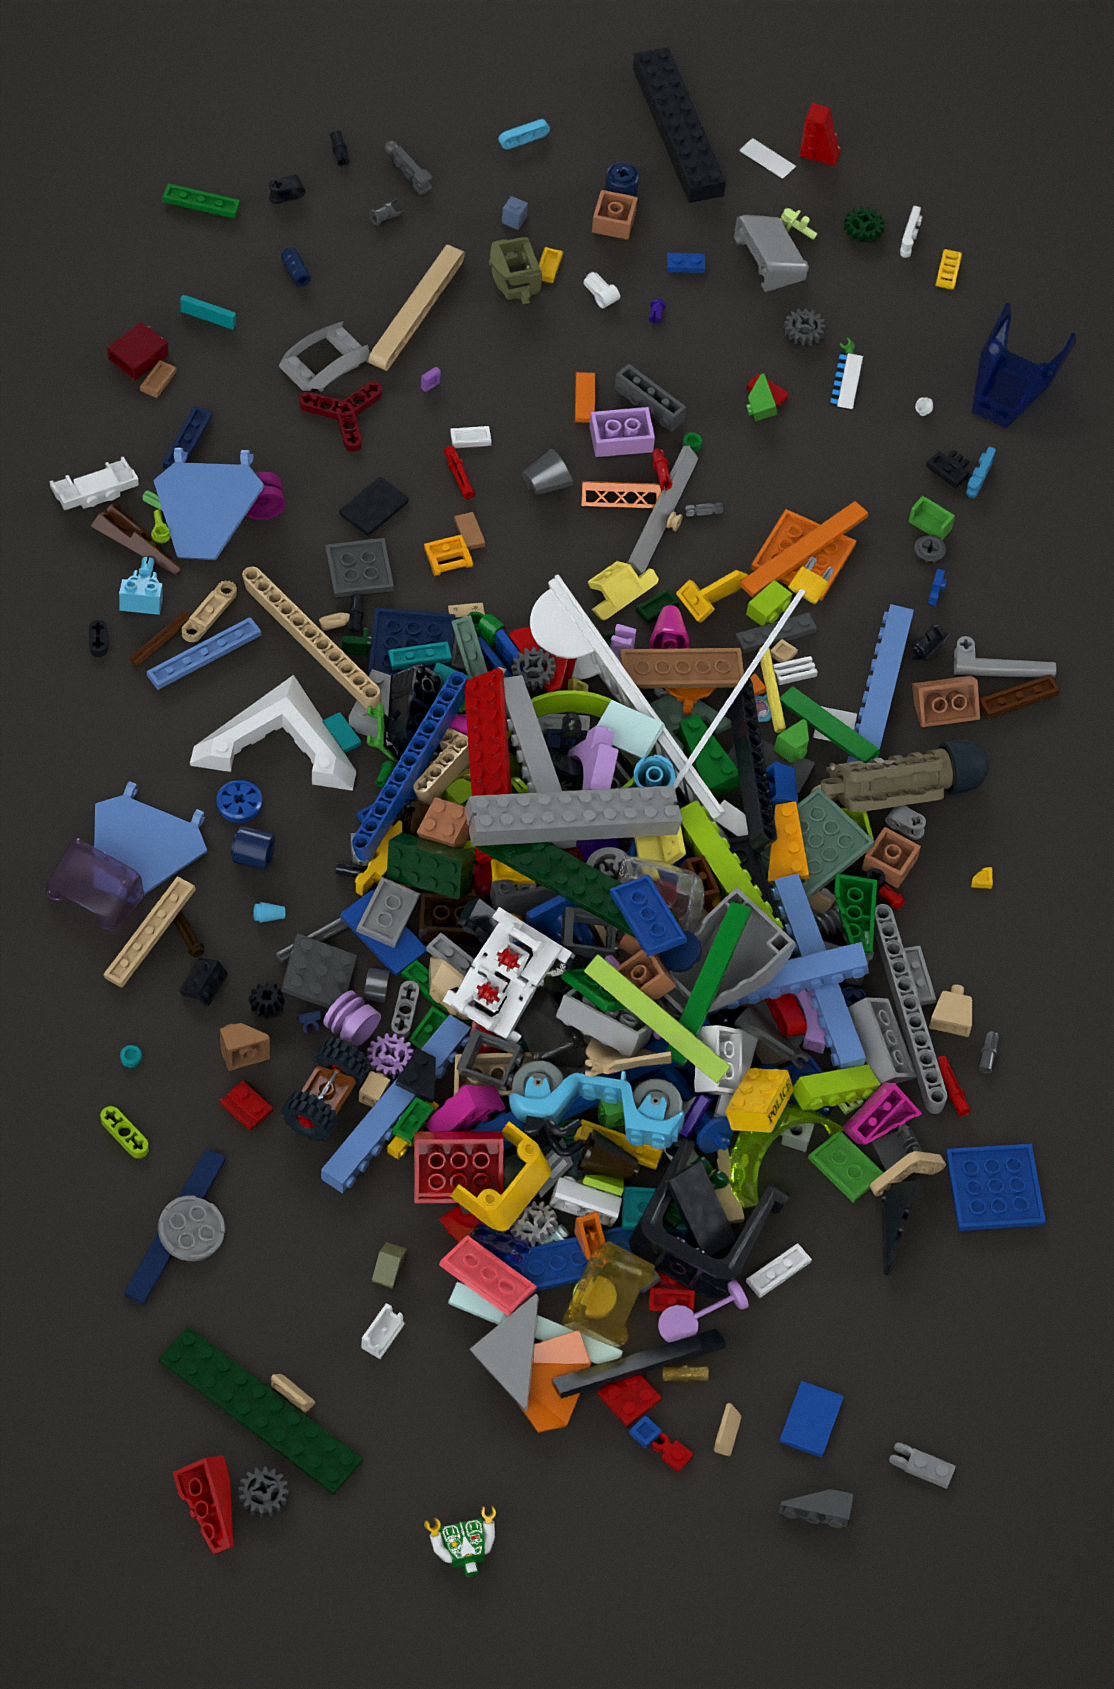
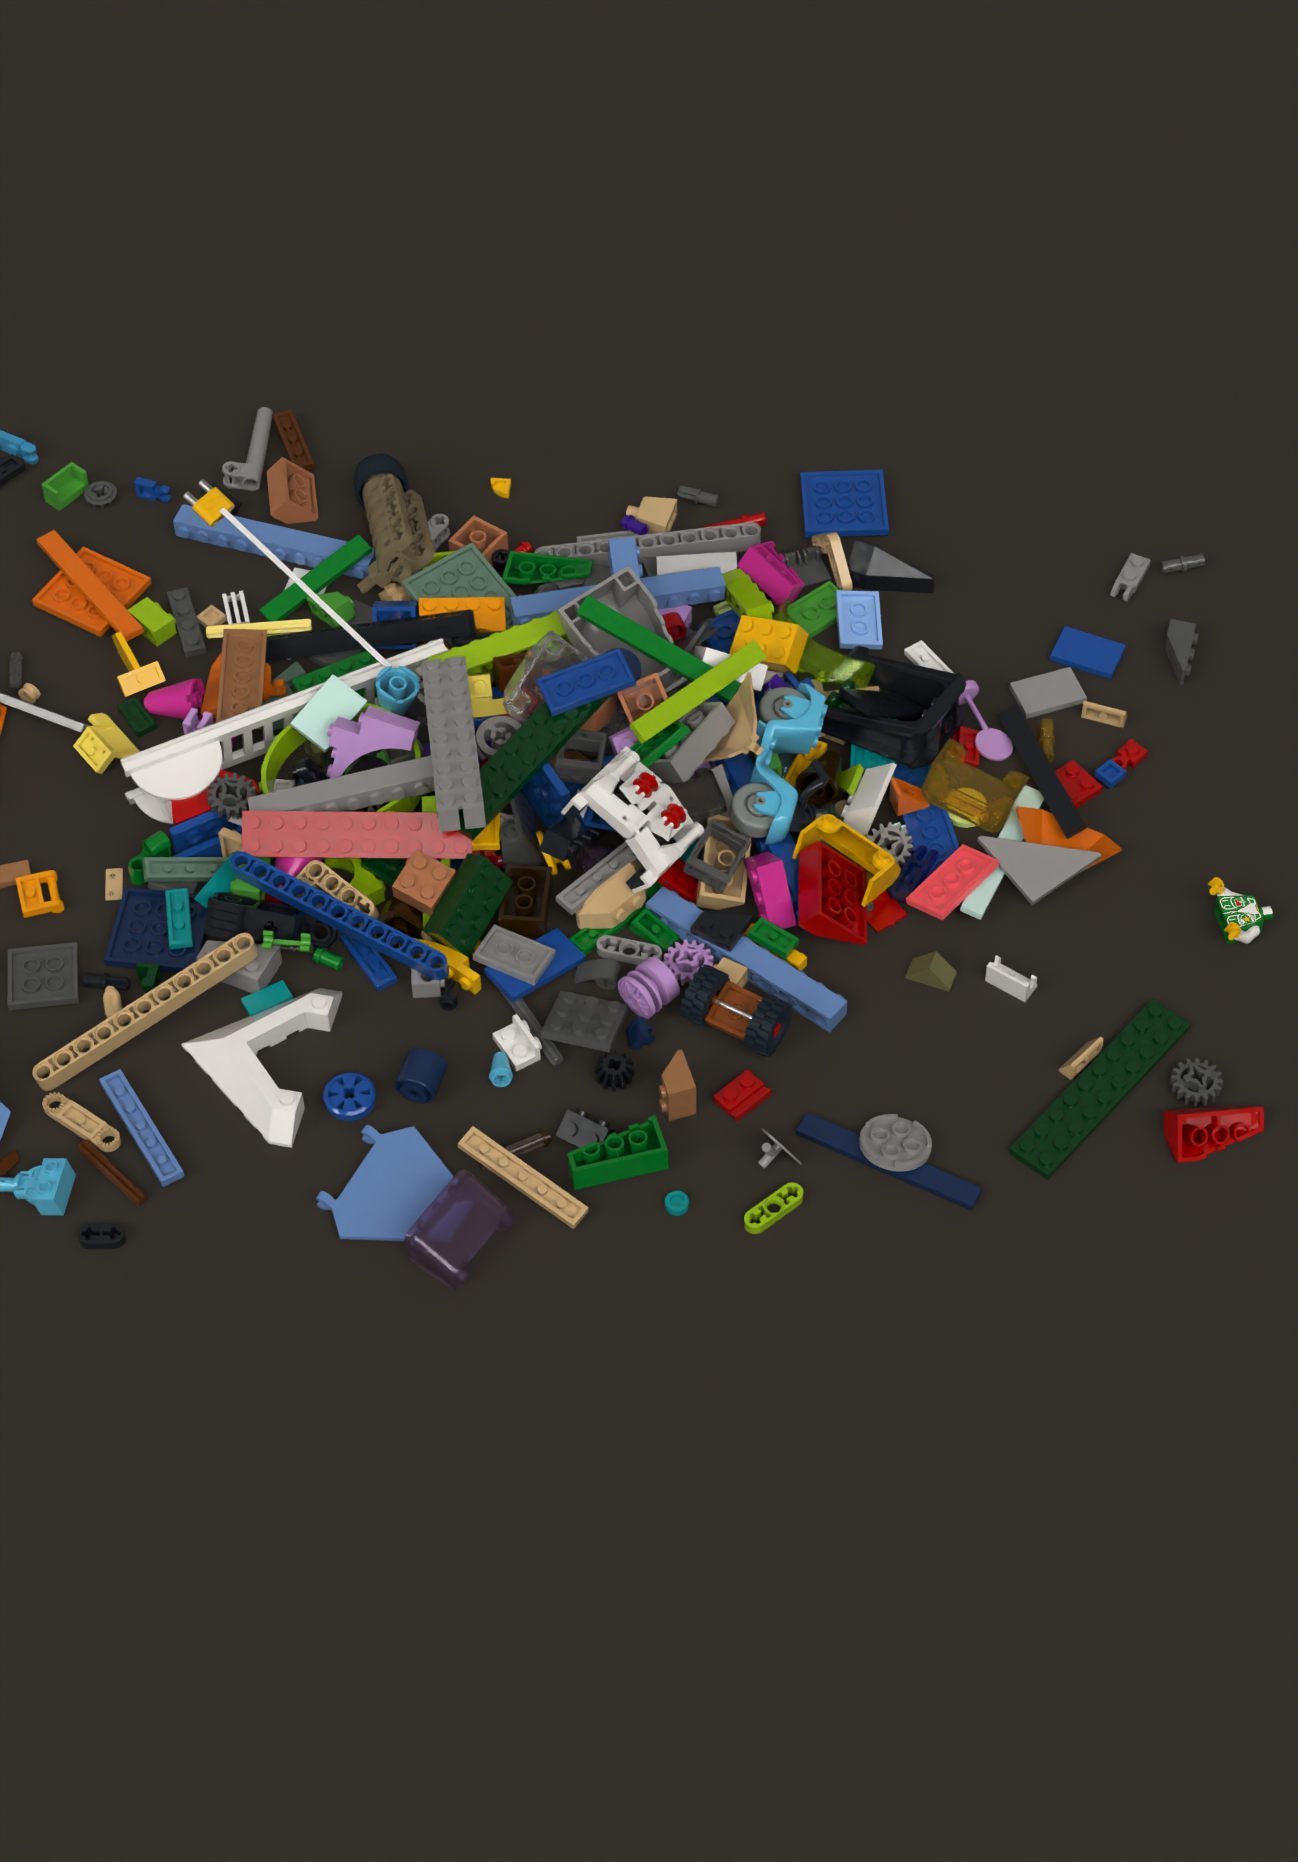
camera: 80 degrees left, 5 degrees down
(175, 1012) = (619, 1156): none -> green wedge
(184, 1128) = (772, 1151): none -> light grey shield
(298, 922) = (518, 1043): none -> white bracket
(752, 1378) = (1048, 692): none -> light grey tile
(828, 1198) = (859, 619): none -> light blue plate
(934, 992) = (634, 525): none -> dark purple pin
(946, 1517) = (1182, 563): none -> dark grey pin

